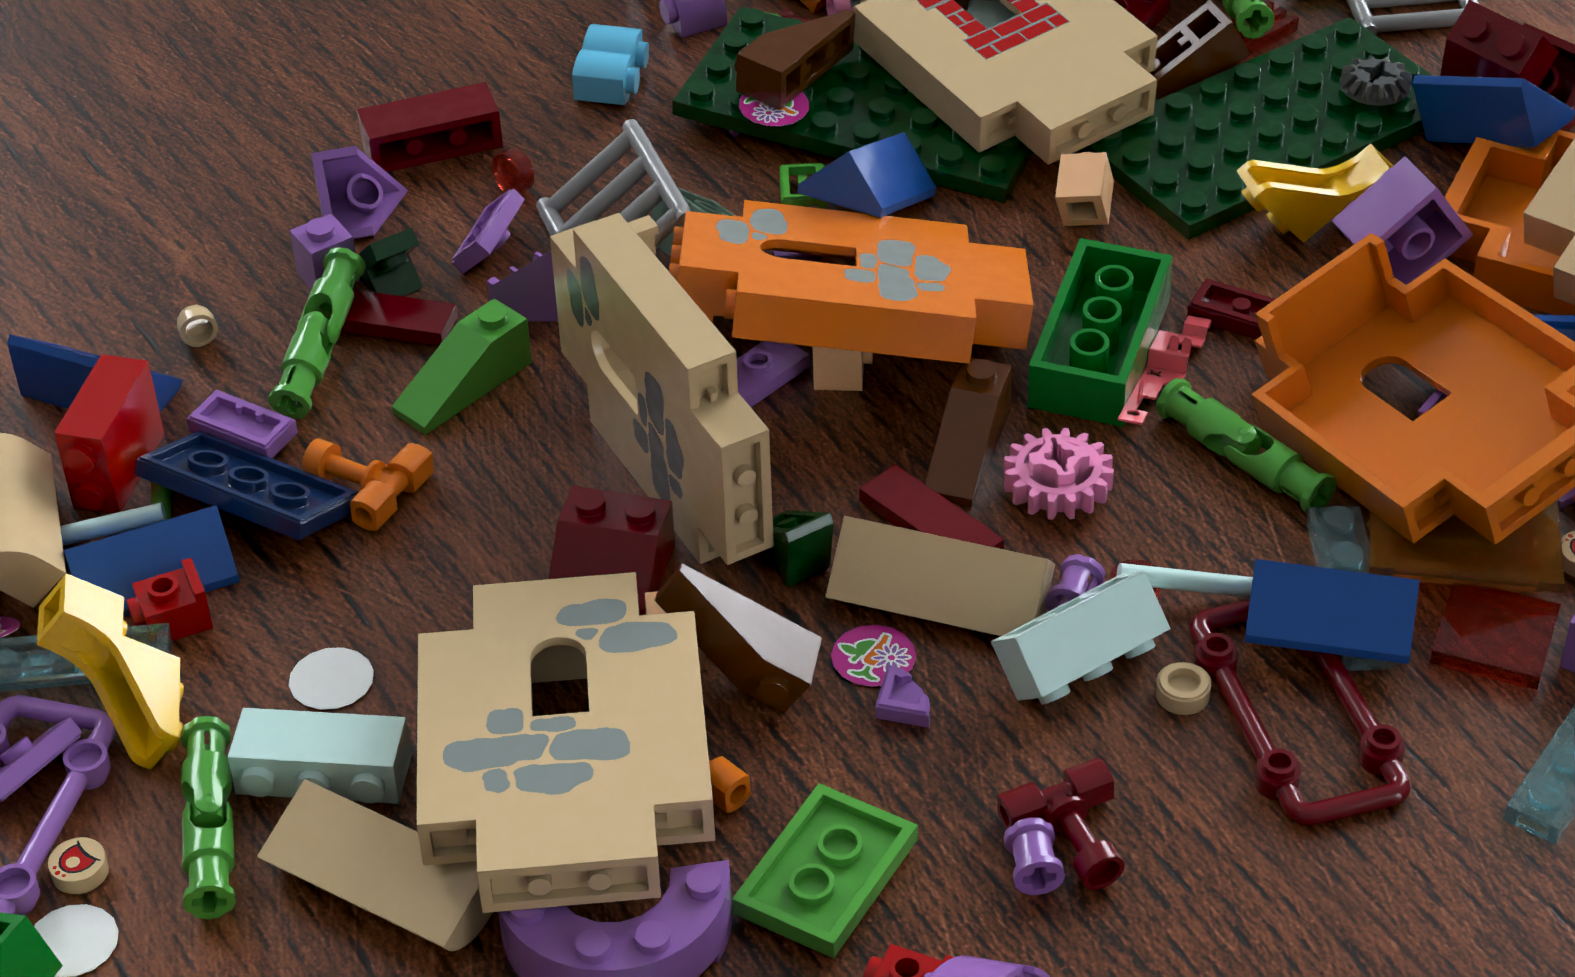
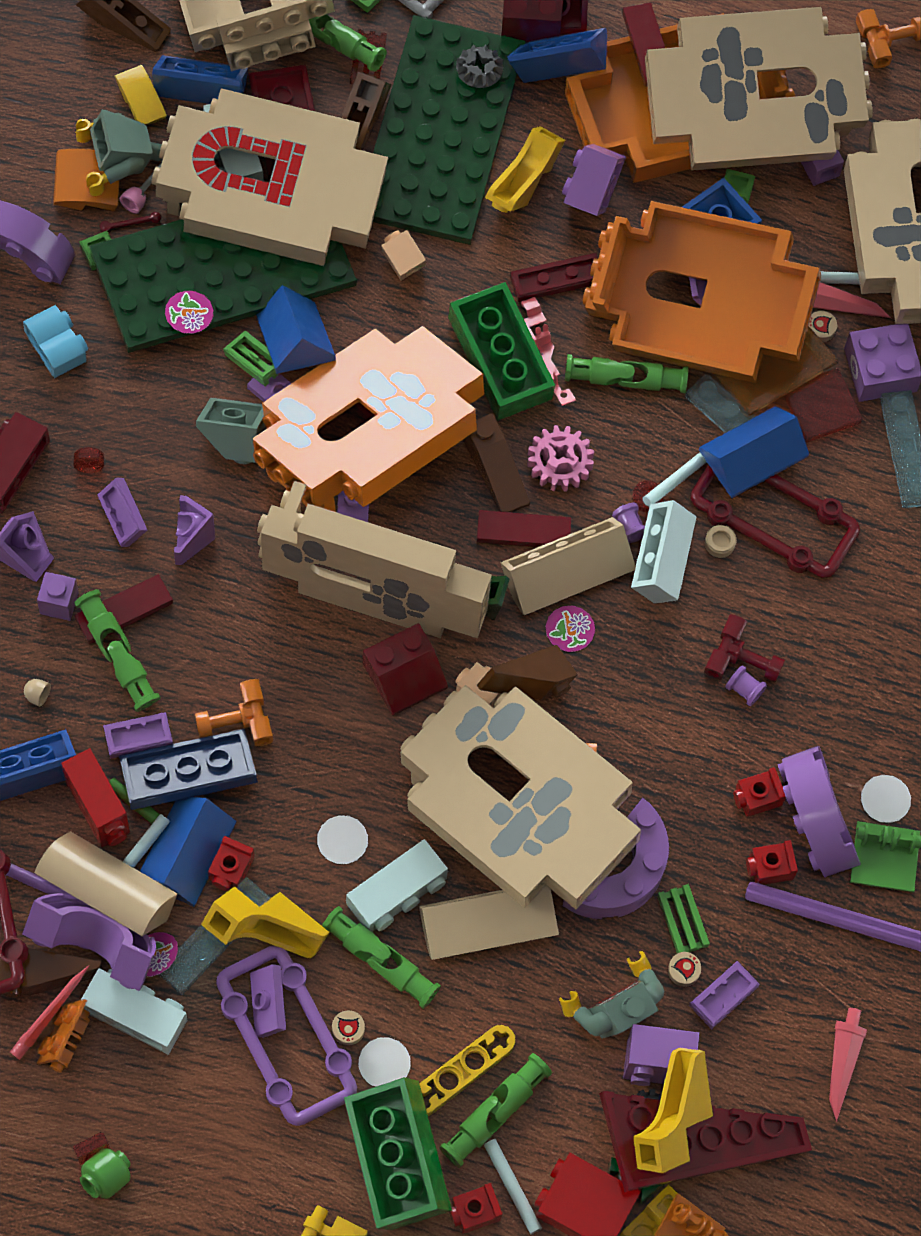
camera: 50 degrees left, 25 degrees up
(390, 266) = (95, 573): dark green slope -> none
(467, 365) = (211, 614): bright green slope -> none
(646, 163) = (214, 427): light grey bar -> none
(792, 58) = (176, 280): reddish brown slope -> none
(825, 870) = (669, 761): bright green plate -> none
(902, 699) = (609, 644): medium lavender tile -> none

